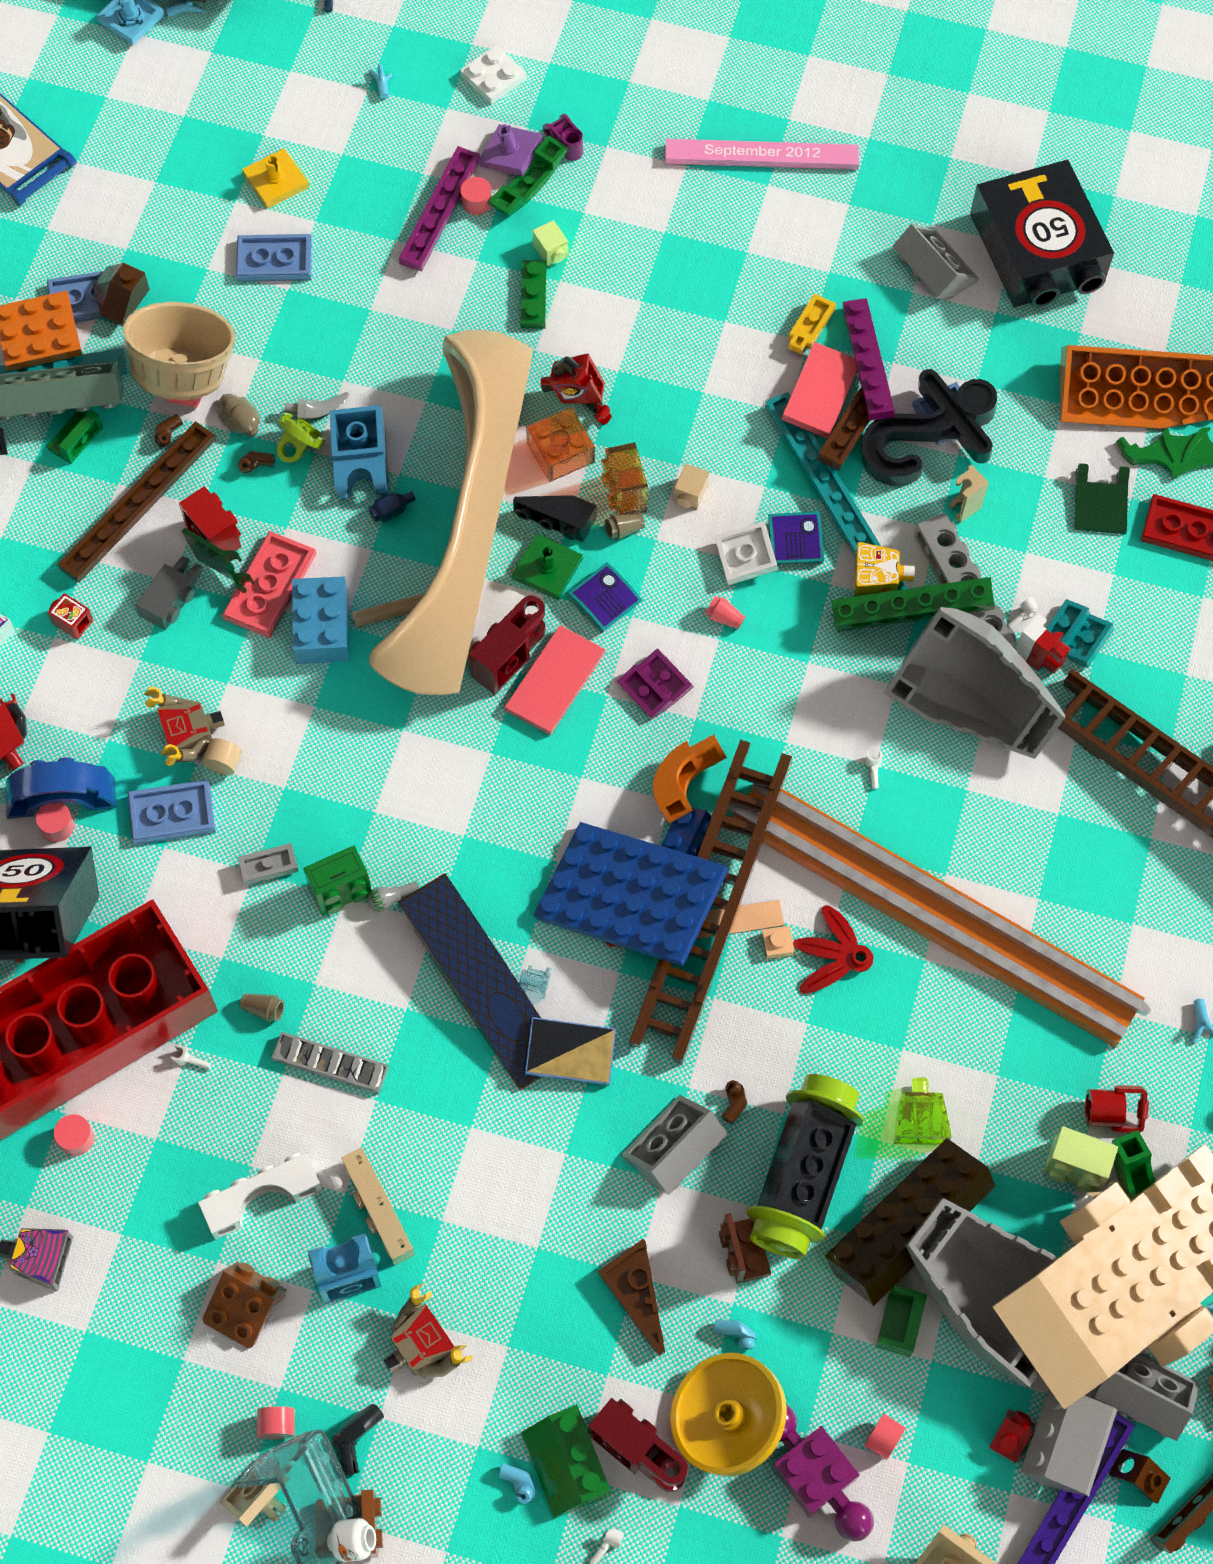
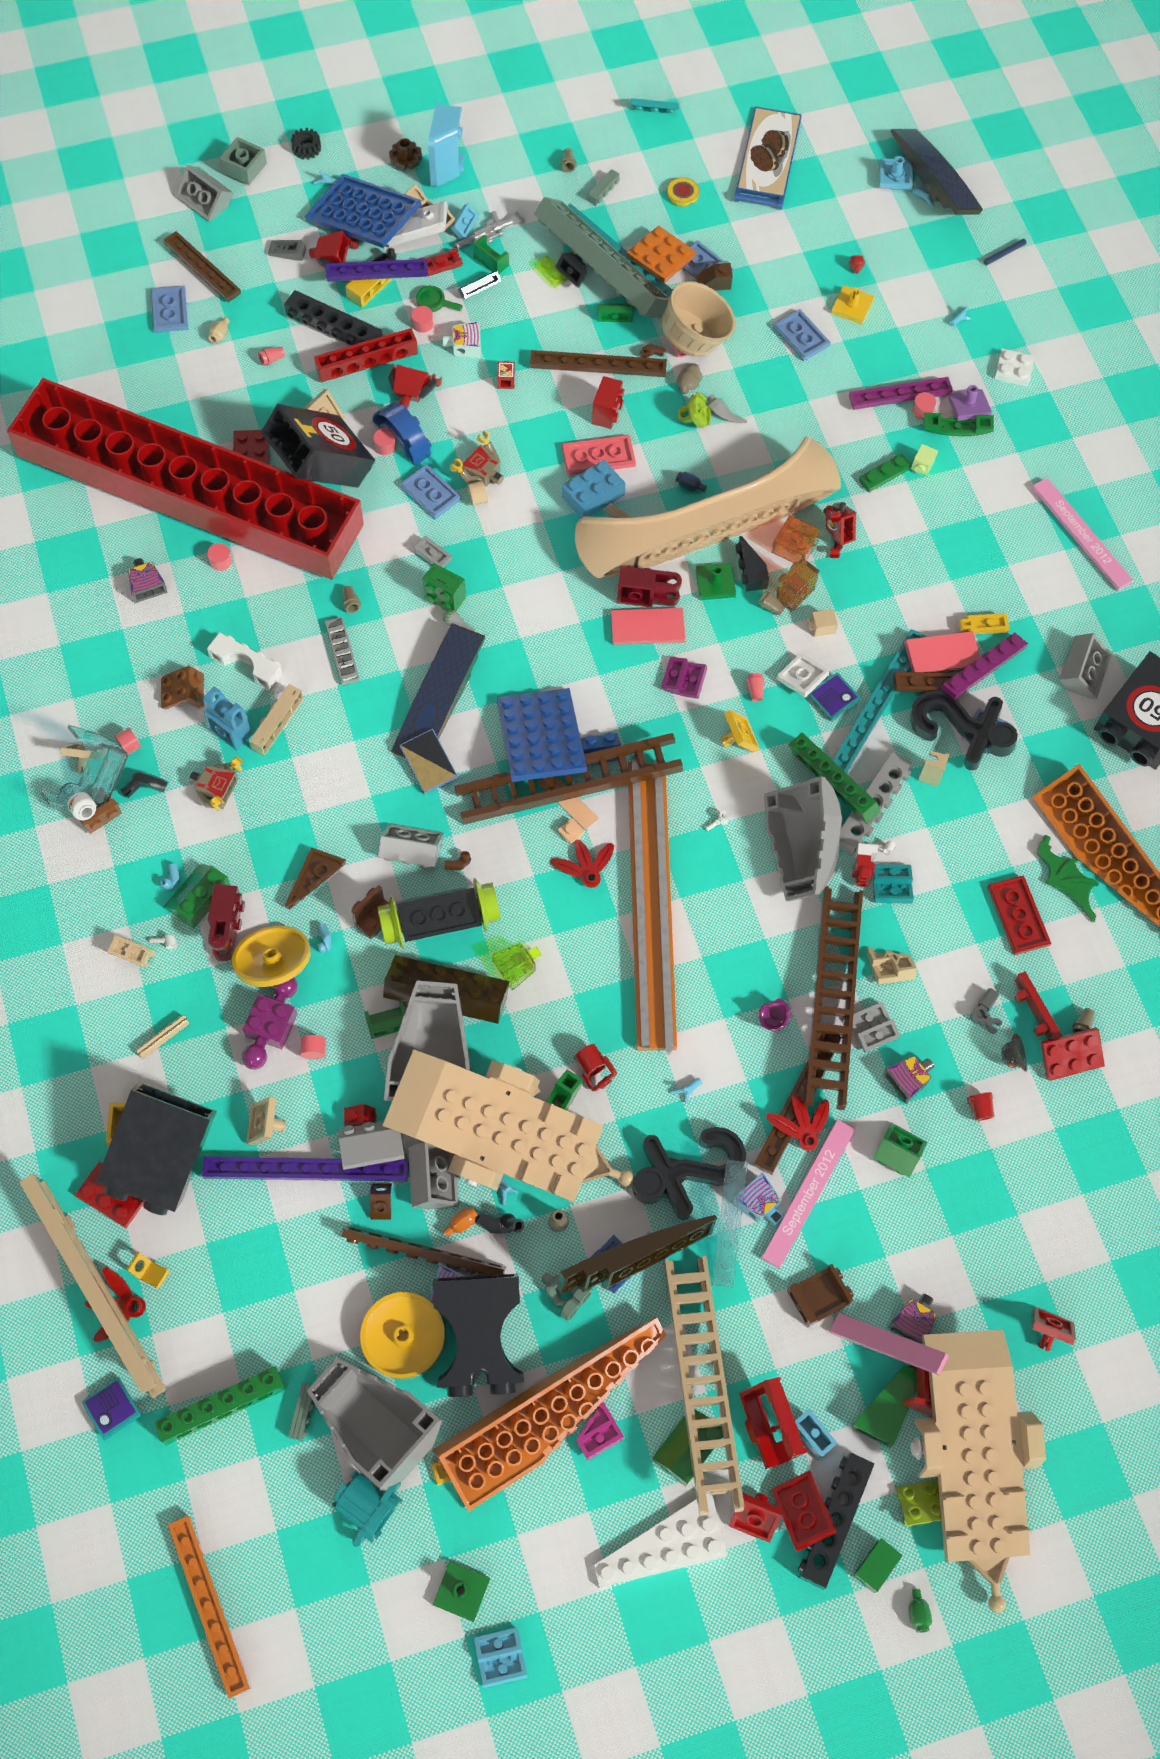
camera: 55 degrees right, 0 degrees up
(168, 593) = (555, 410): dark grey hinge -> none
(187, 1058) = (298, 582): white hand -> none
(217, 559) = (587, 437): dark green flag -> none
(224, 136) = (856, 263): none -> red plate
(254, 459) = (666, 401): reddish brown arm -> none
(359, 449) = (711, 445): dark azure brick -> none
(535, 980) = (458, 720): clear light blue brick -> none
(567, 134) = (1002, 427): magenta piece -> none
(604, 597) = (718, 620): slope -> none
(678, 771) = (633, 718): orange arch -> none
(779, 667) = (740, 732): none -> yellow tile
(879, 570) = (842, 747): yellow torso -> none
(1080, 1160) = (545, 1060): yellowish green brick -> none
(1101, 505) = (993, 851): dark green flag -> none
(1172, 864) = (775, 1015): none -> magenta hair
(1180, 702) = (891, 966): none -> tan slope

